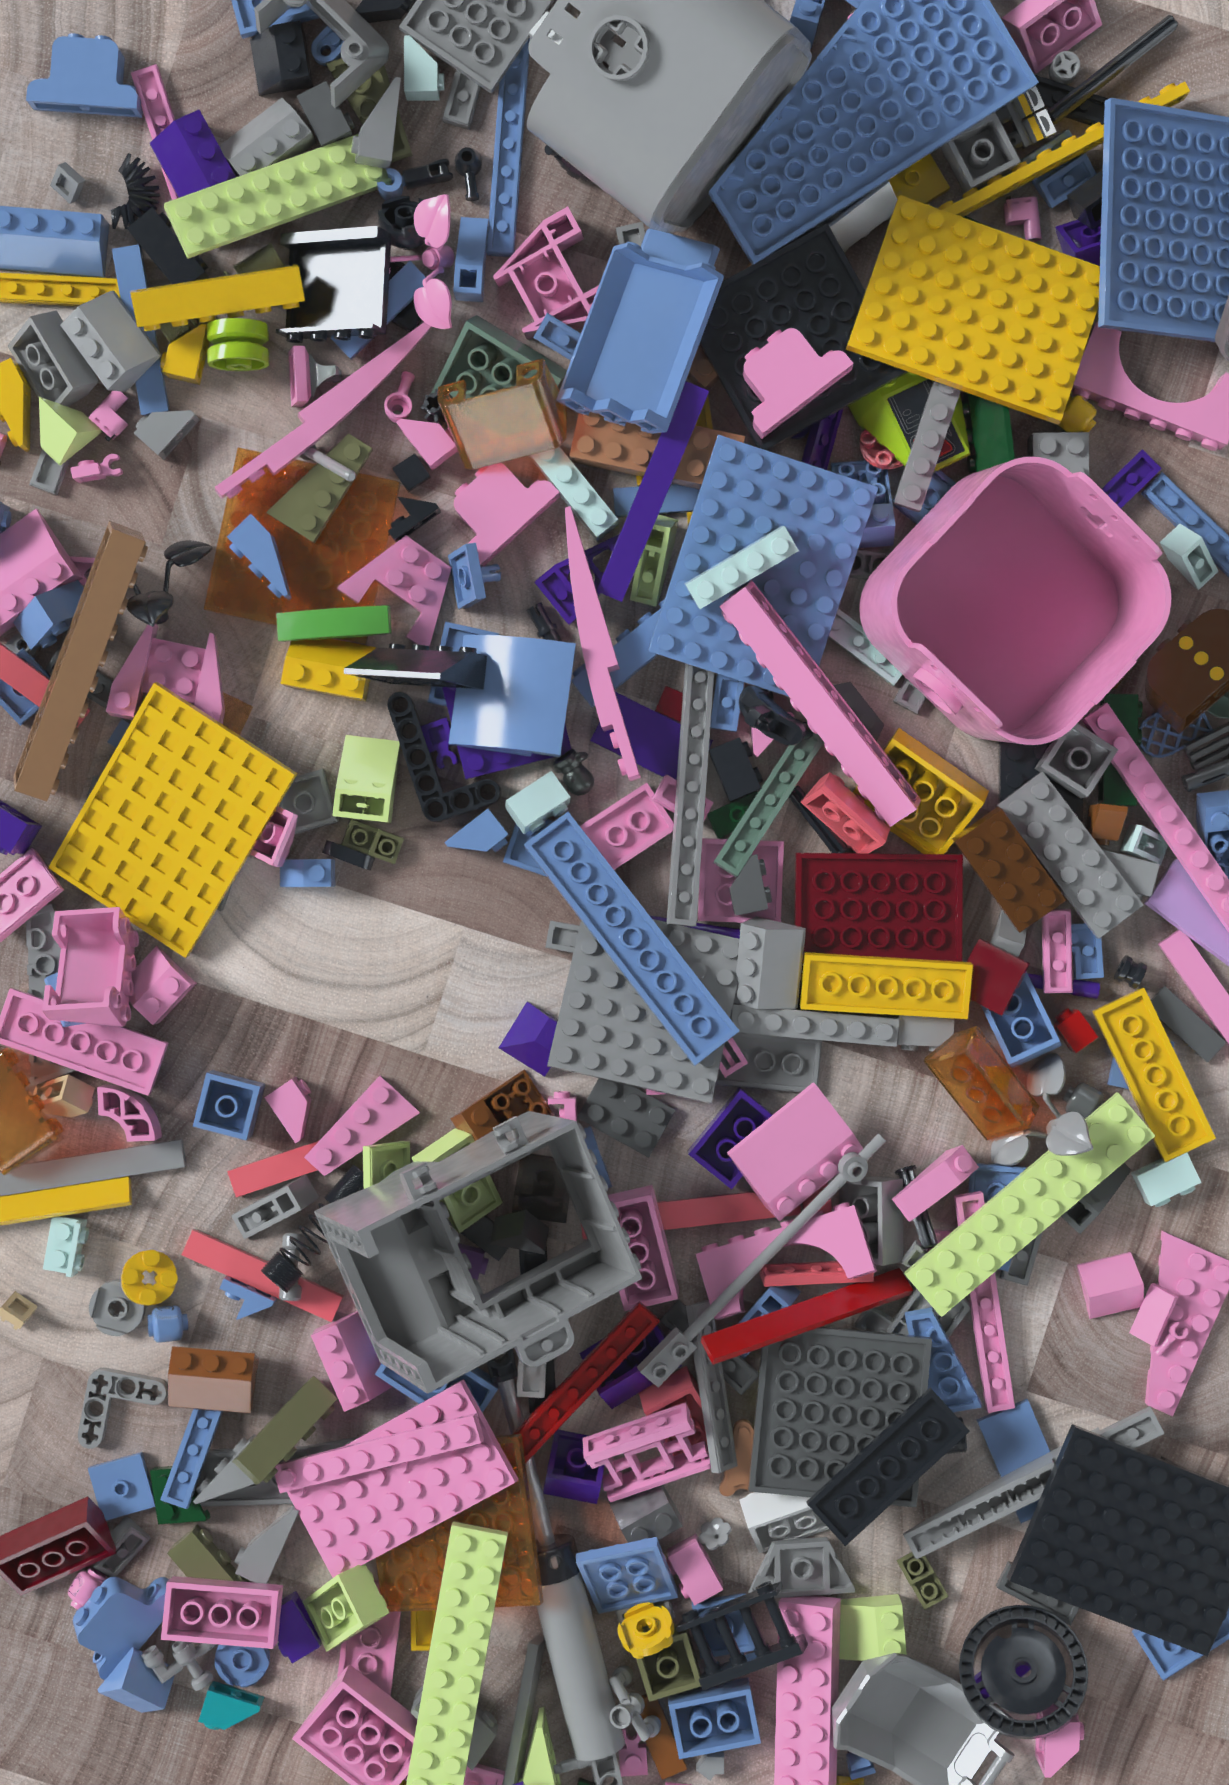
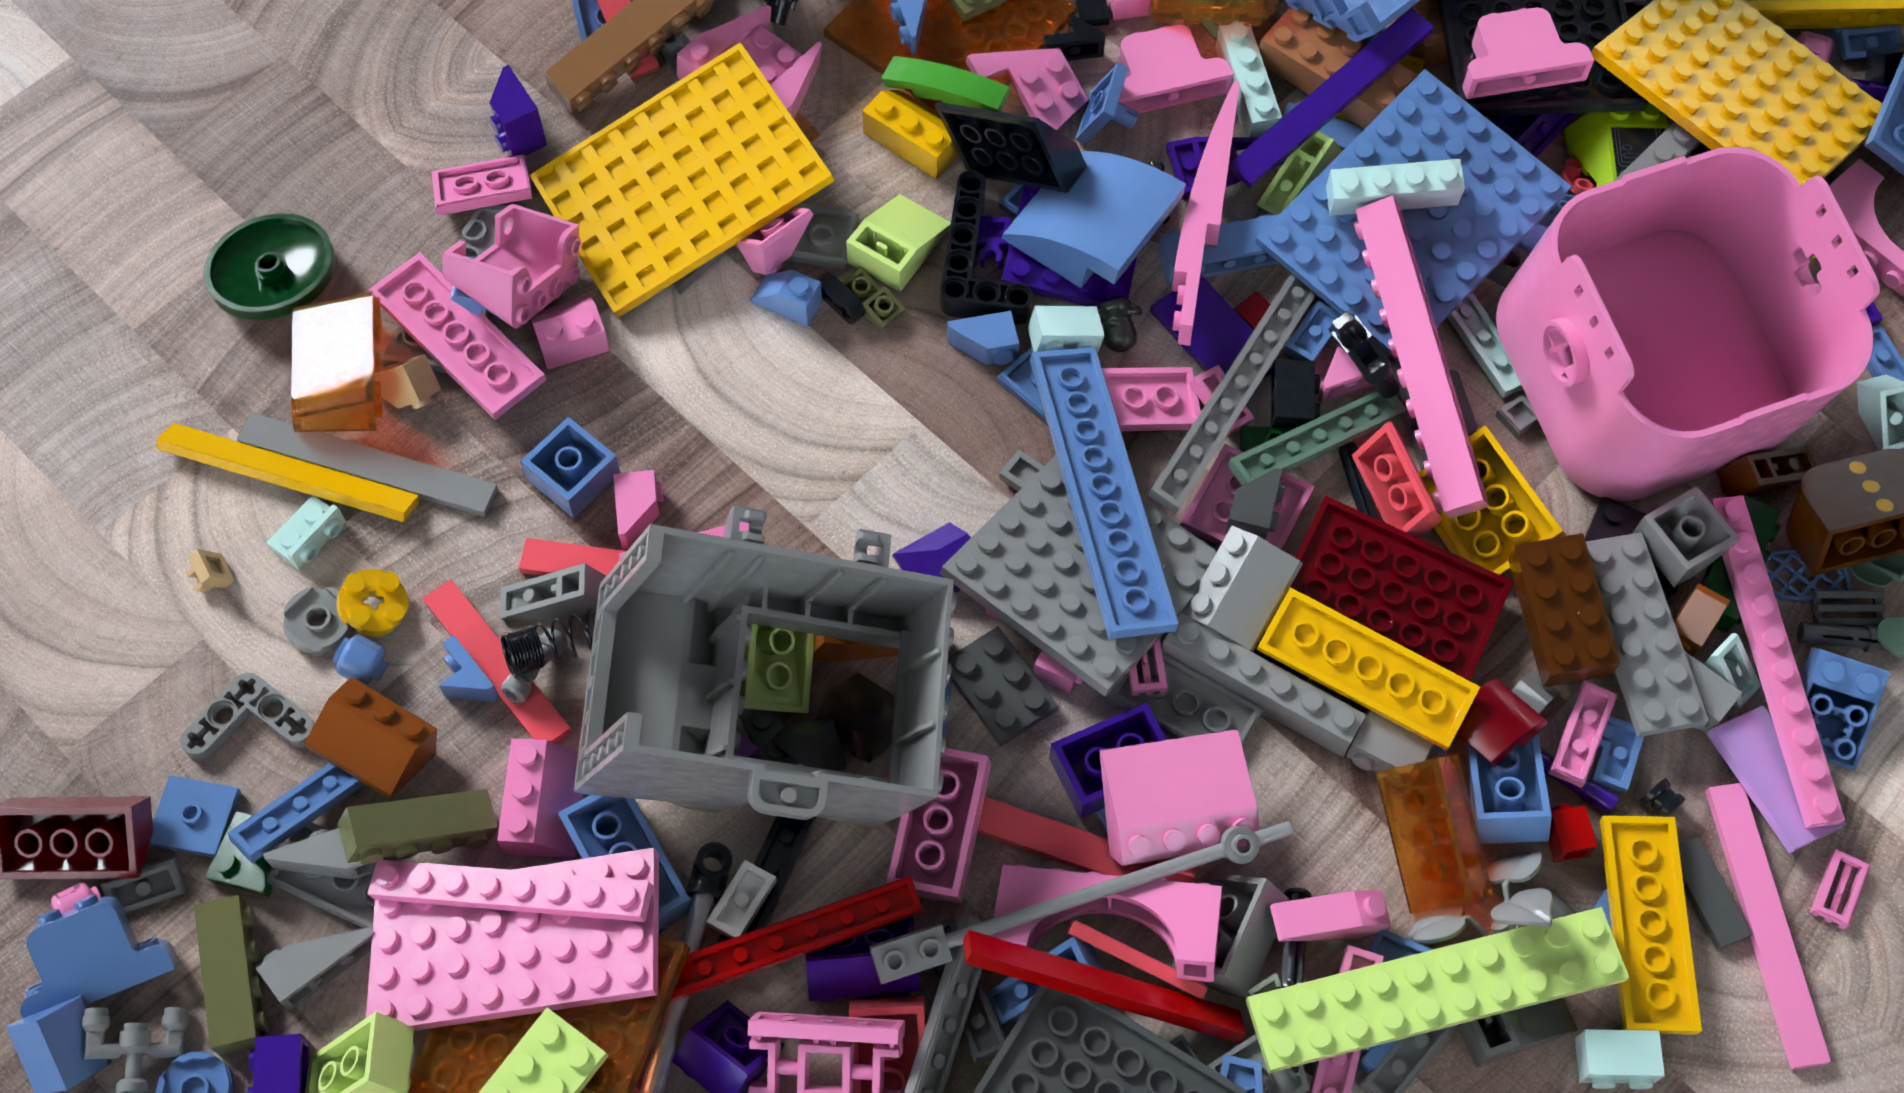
camera: 25 degrees right, 25 degrees down
(130, 1112) = (465, 435): bright pink brick -> none
(222, 1612) = (213, 994): bright pink brick -> none

